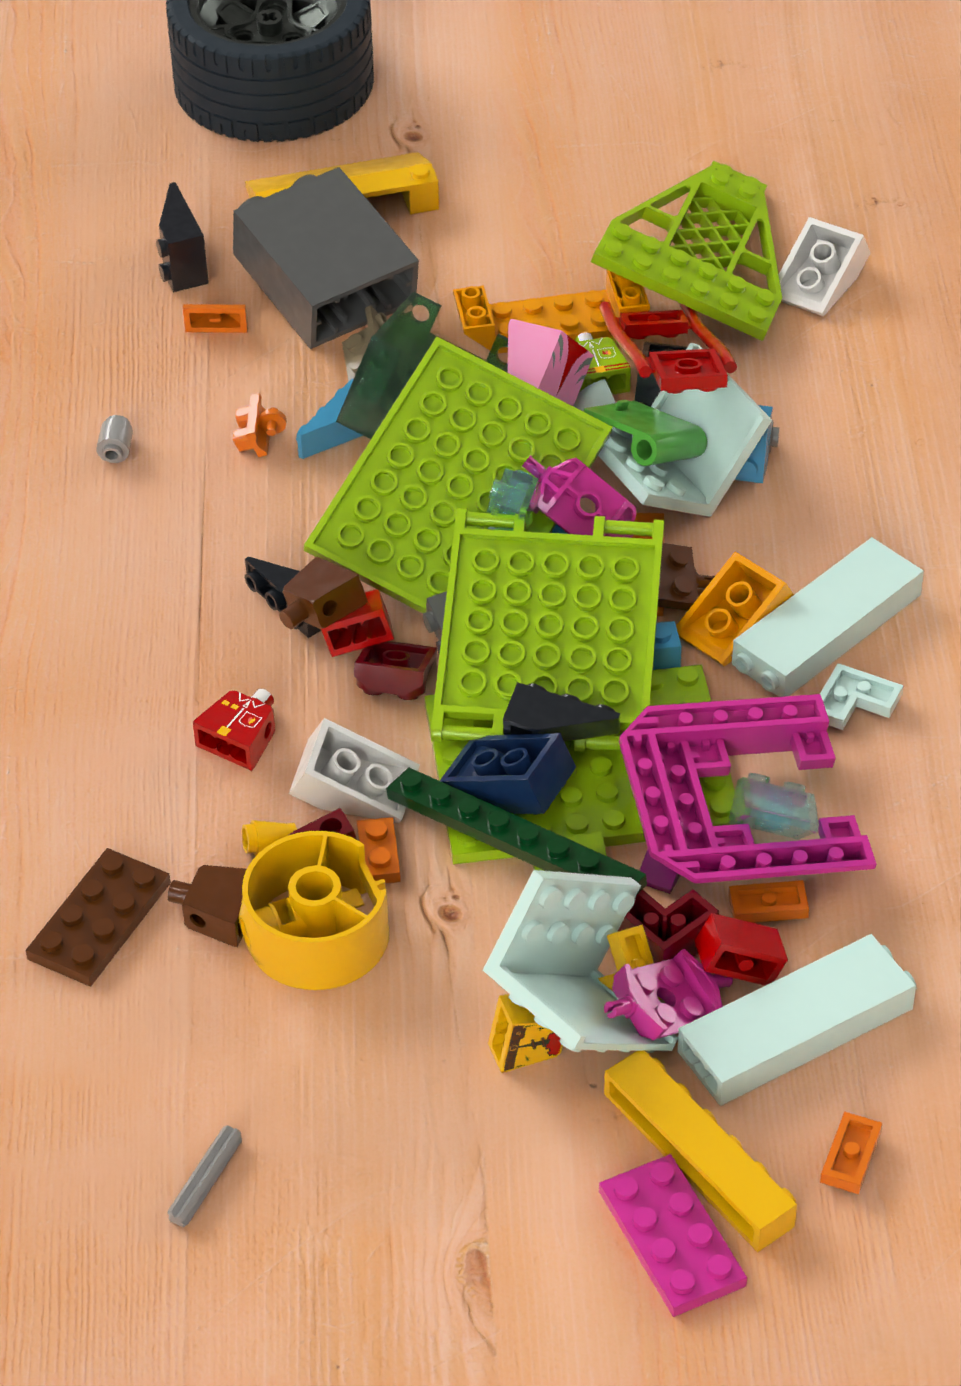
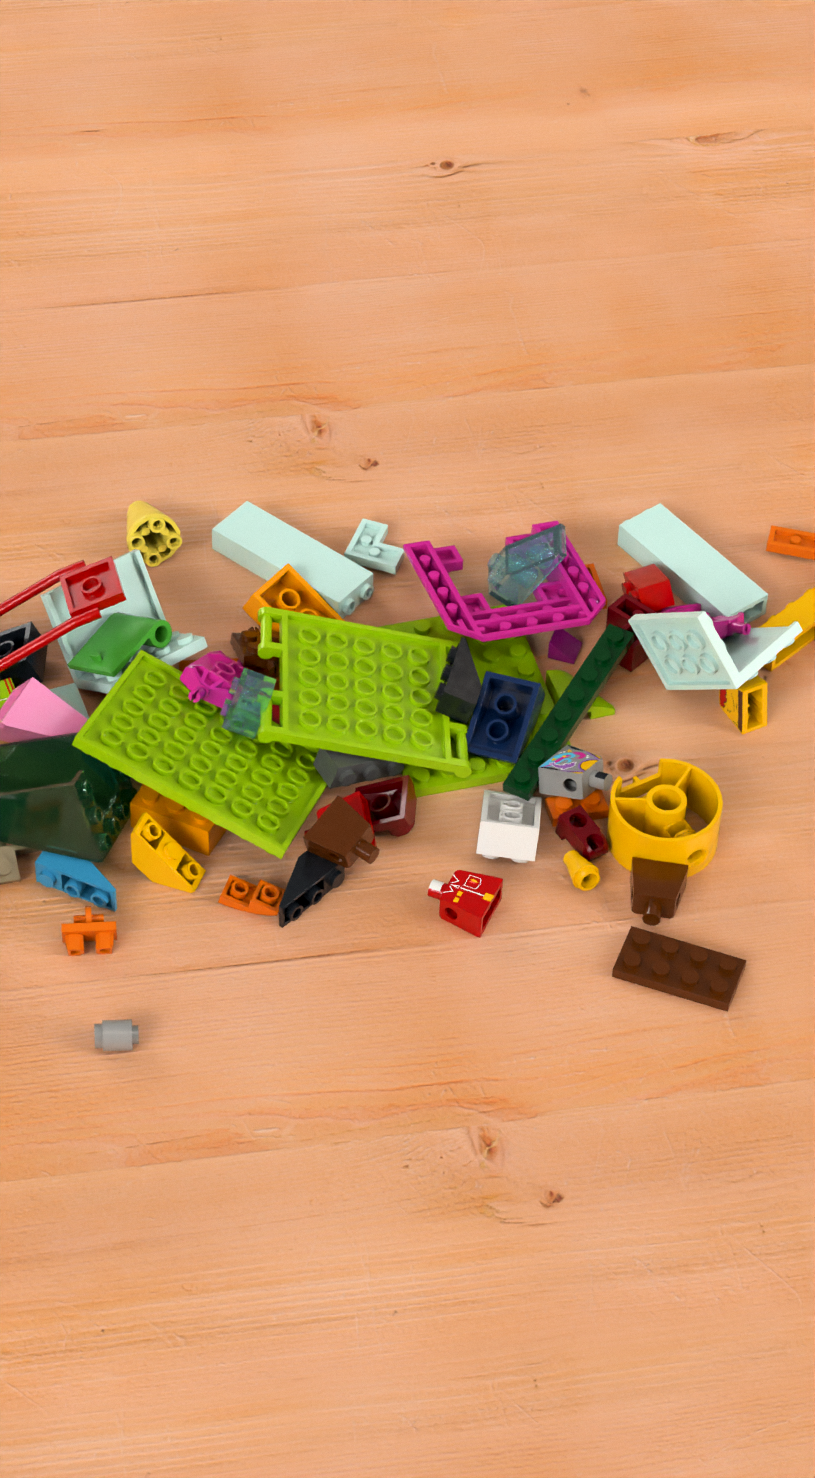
camera: 100 degrees left, 0 degrees up
(291, 550) = (254, 899): none -> orange slope
(345, 452) = (162, 857): none -> yellow slope
(413, 834) = (573, 774): none -> light grey torso
(878, 488) = (151, 533): none -> light yellow cone

